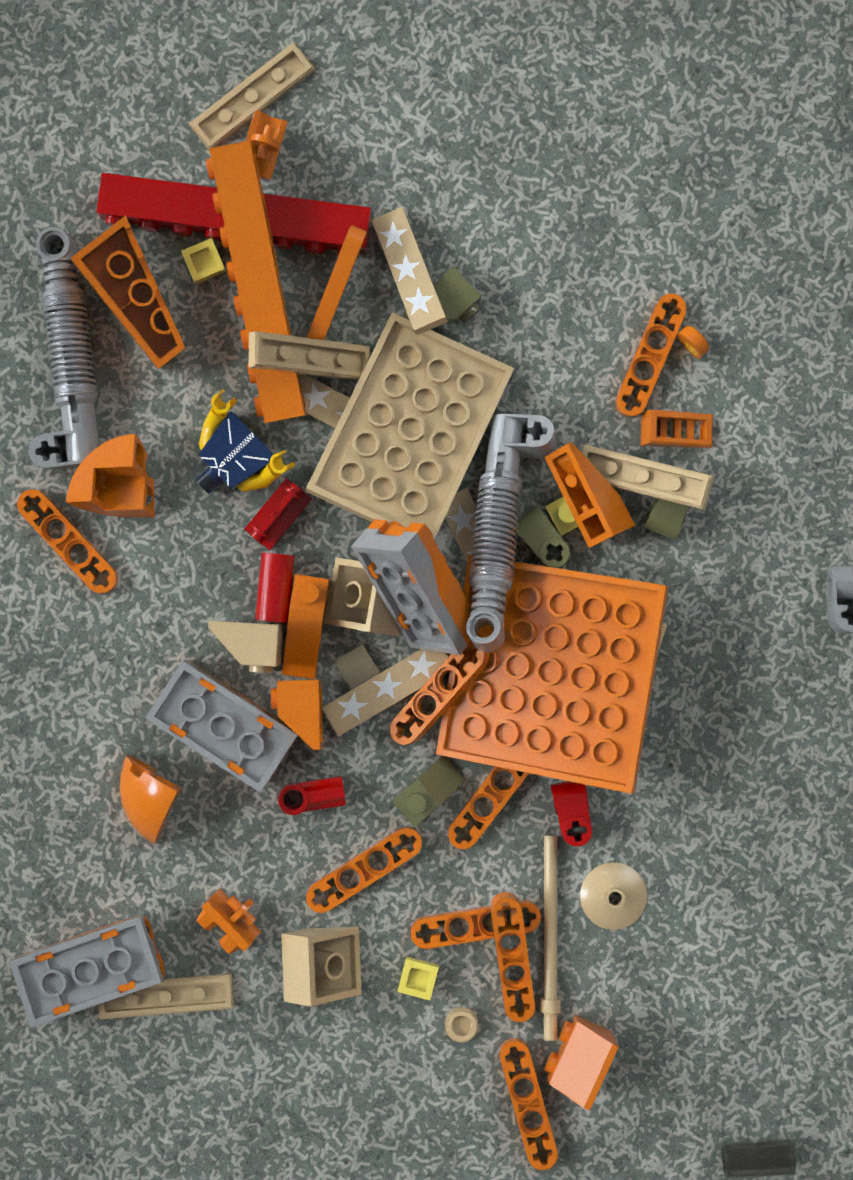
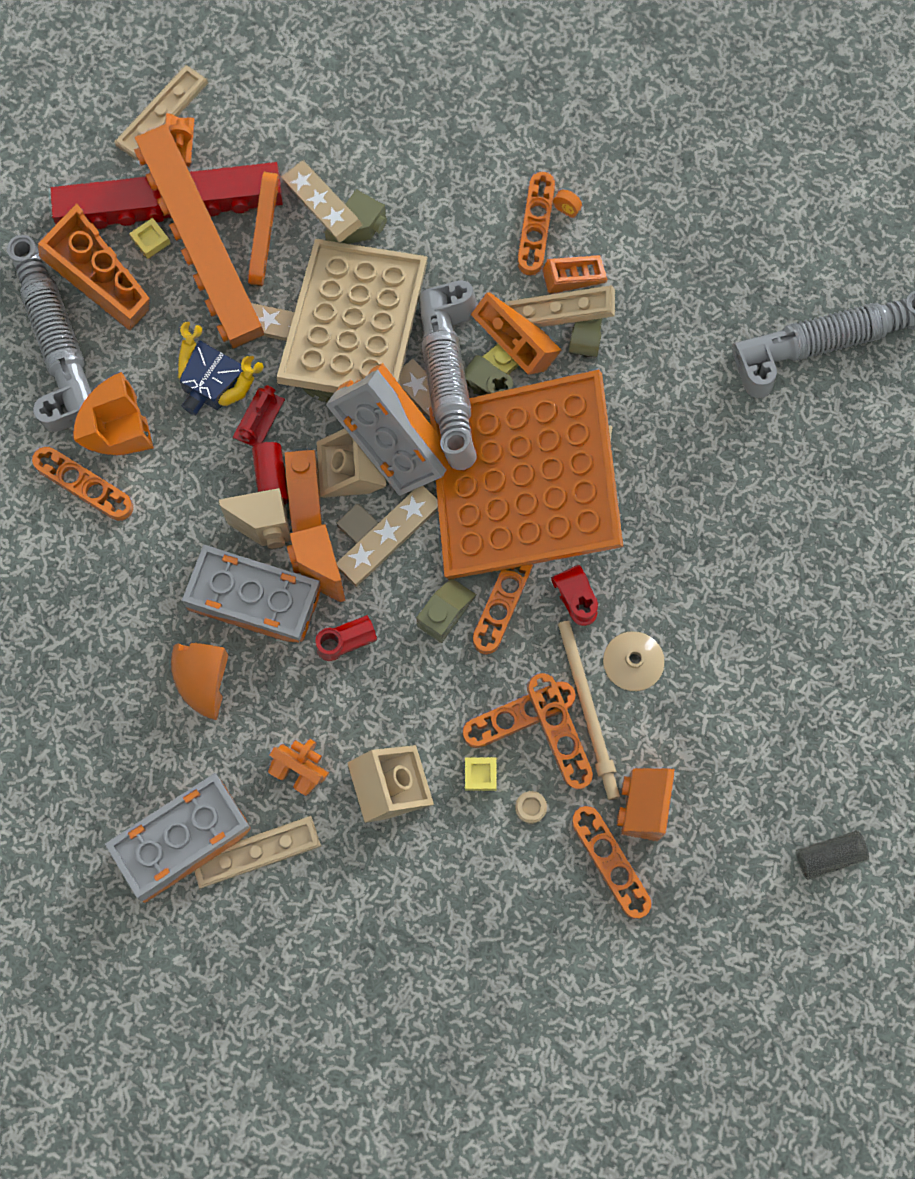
camera: 15 degrees left, 15 degrees down
(307, 355) = (251, 278): tan tile -> none
(366, 872) = (404, 689): orange beam -> none
(443, 697) = (438, 524): orange beam -> none

